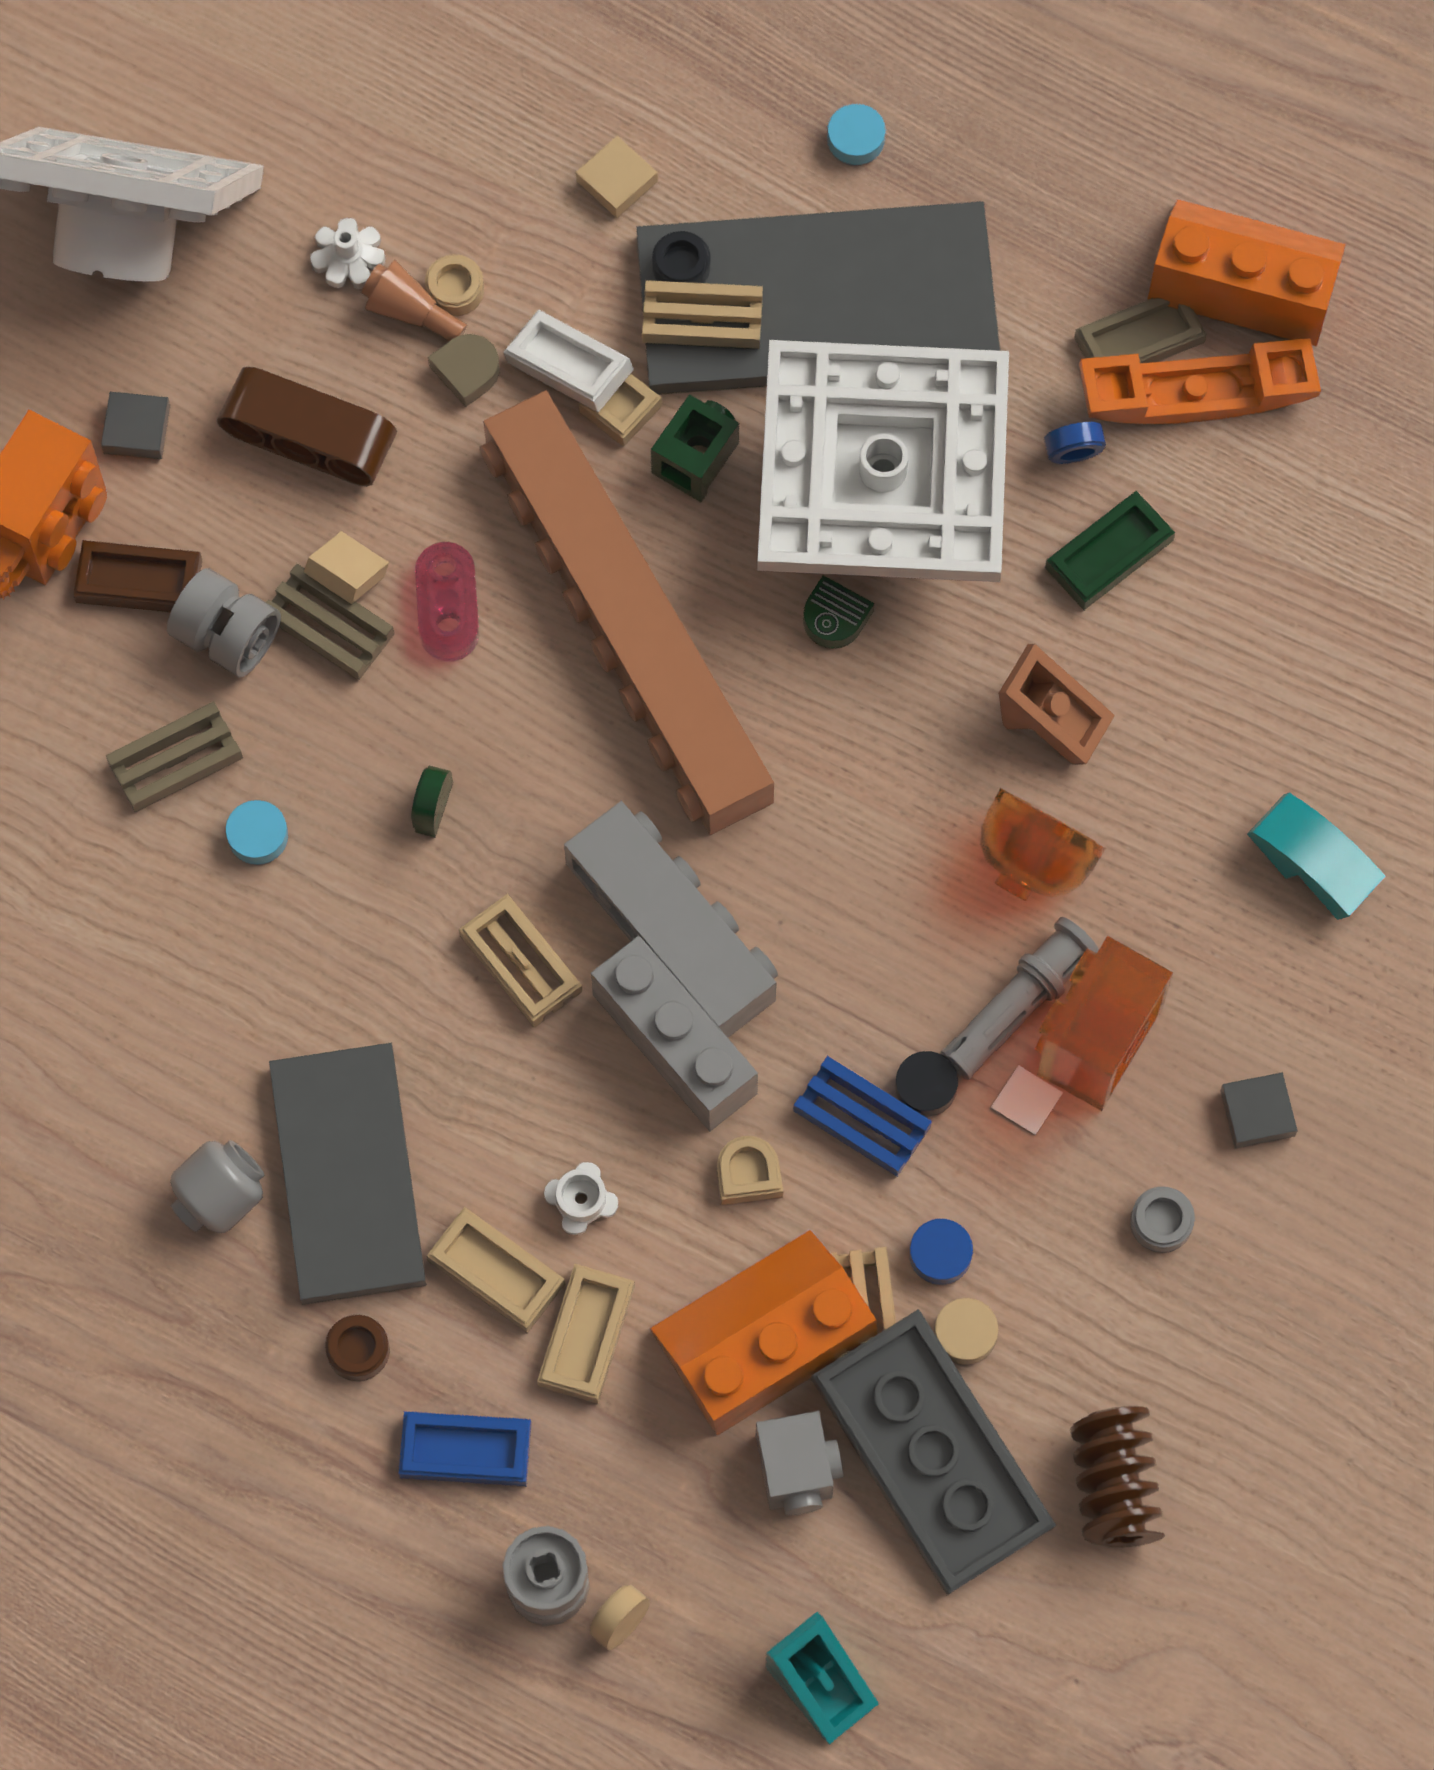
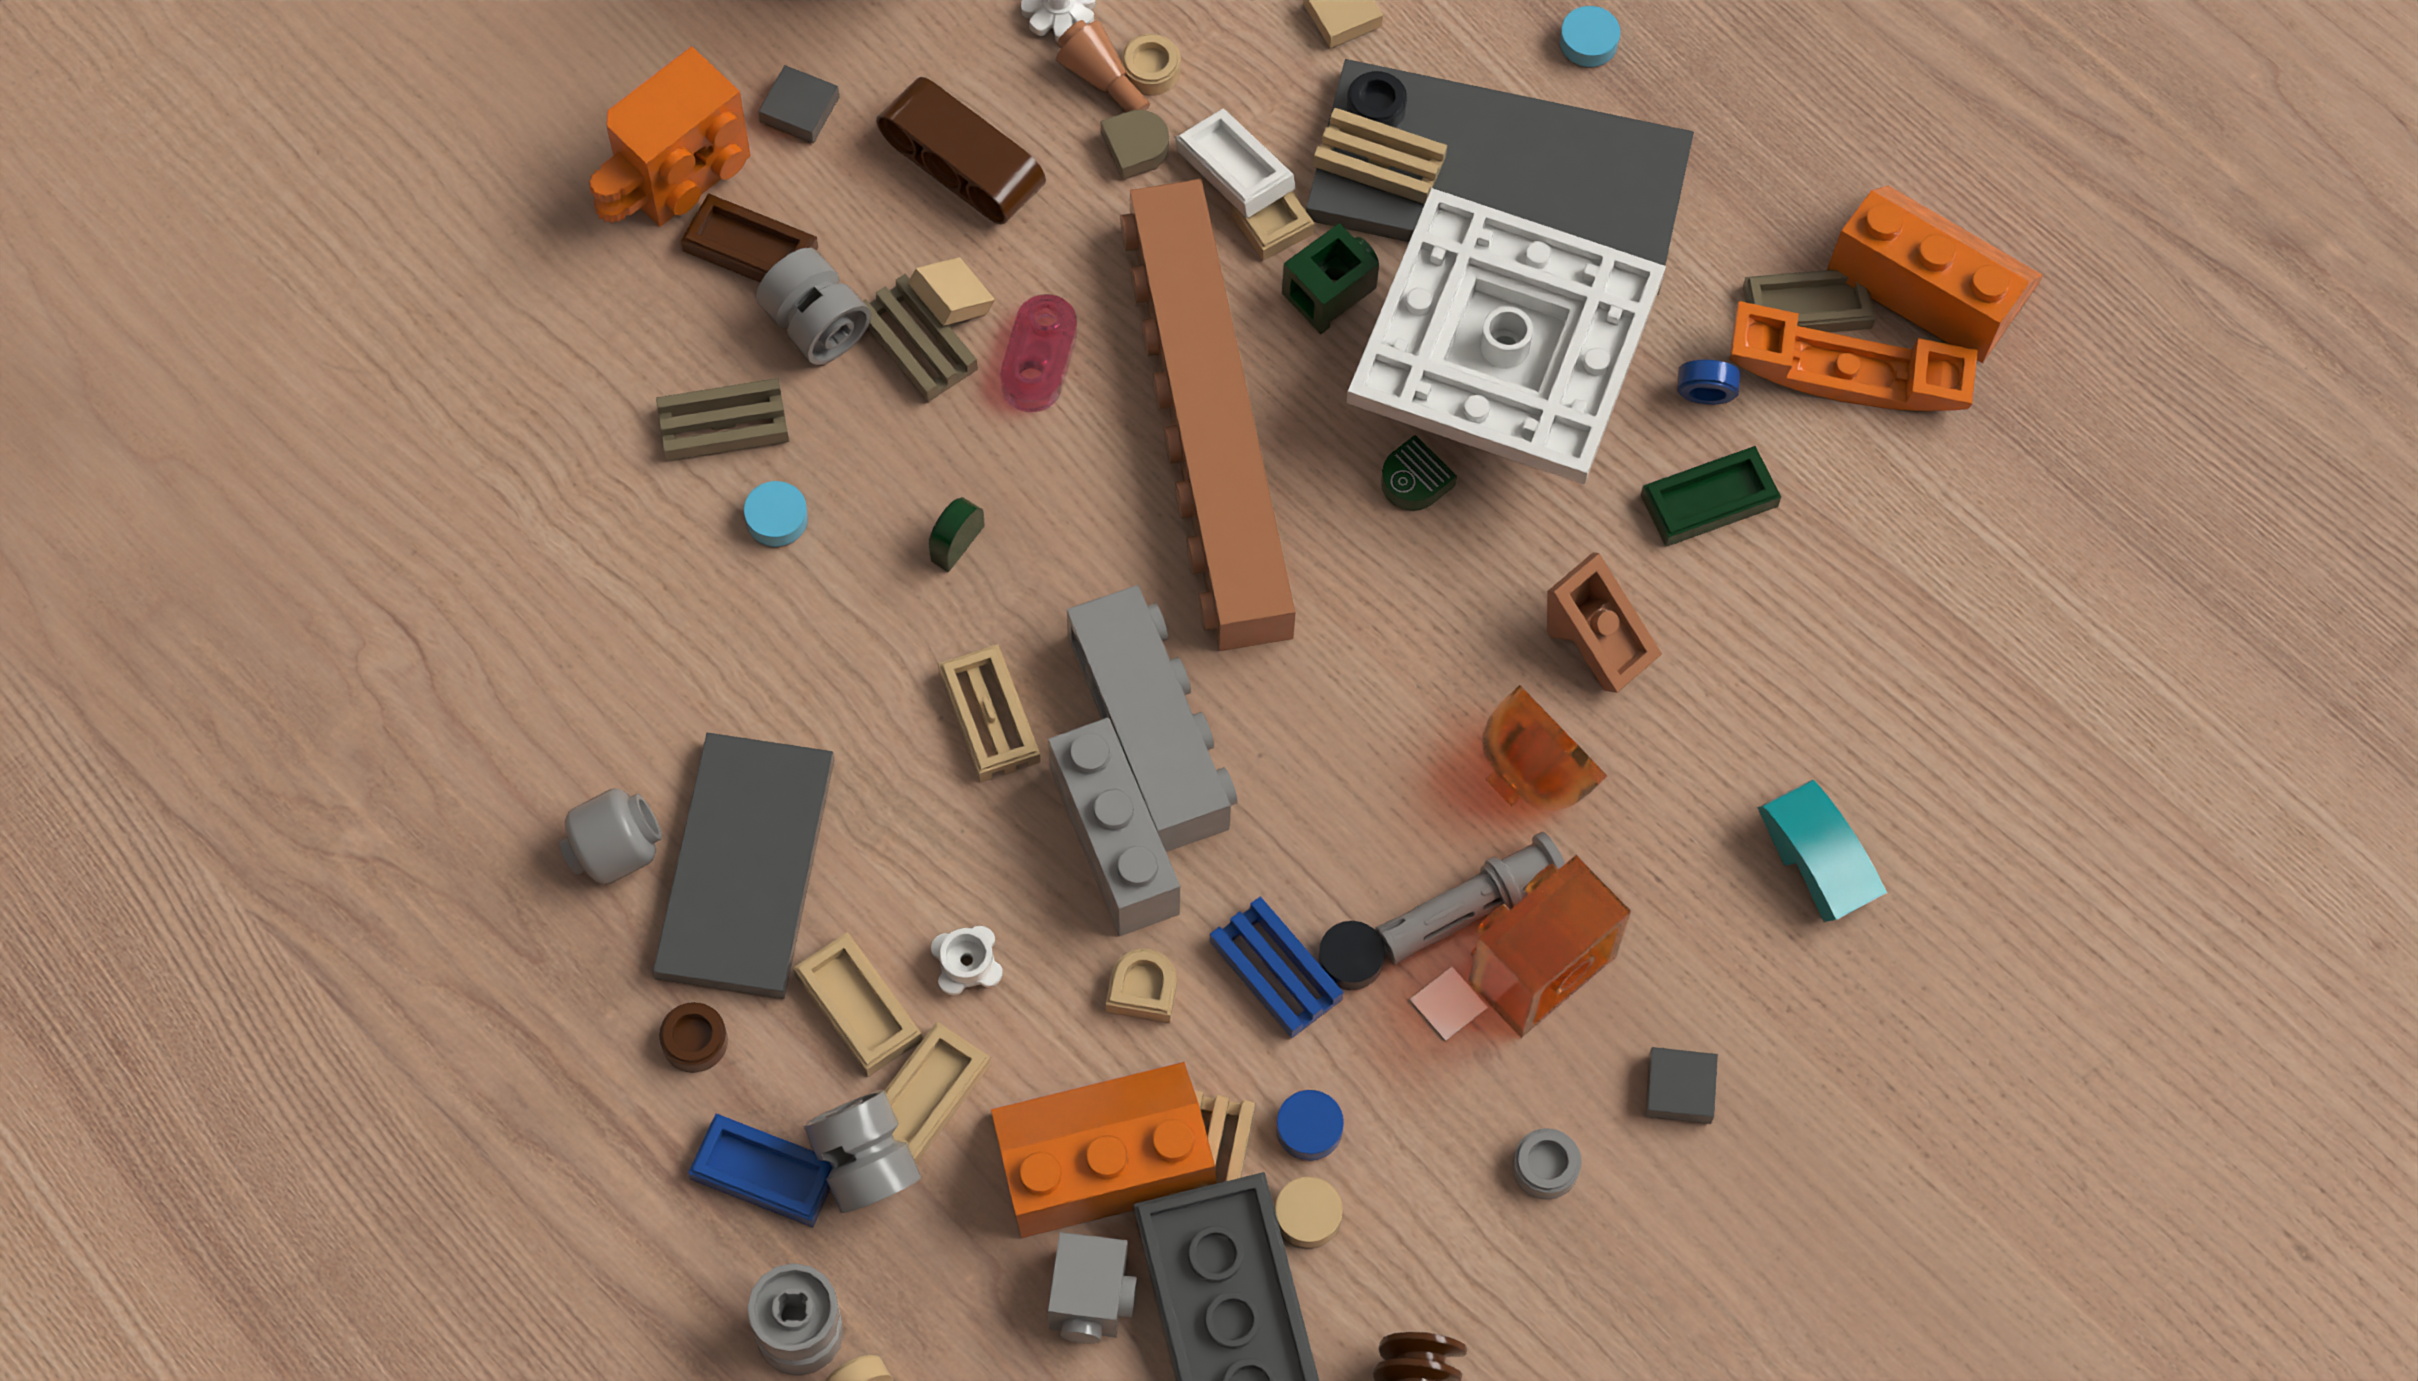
camera: 15 degrees right, 5 degrees down
(556, 1409) = (862, 1151): none -> light grey wheel

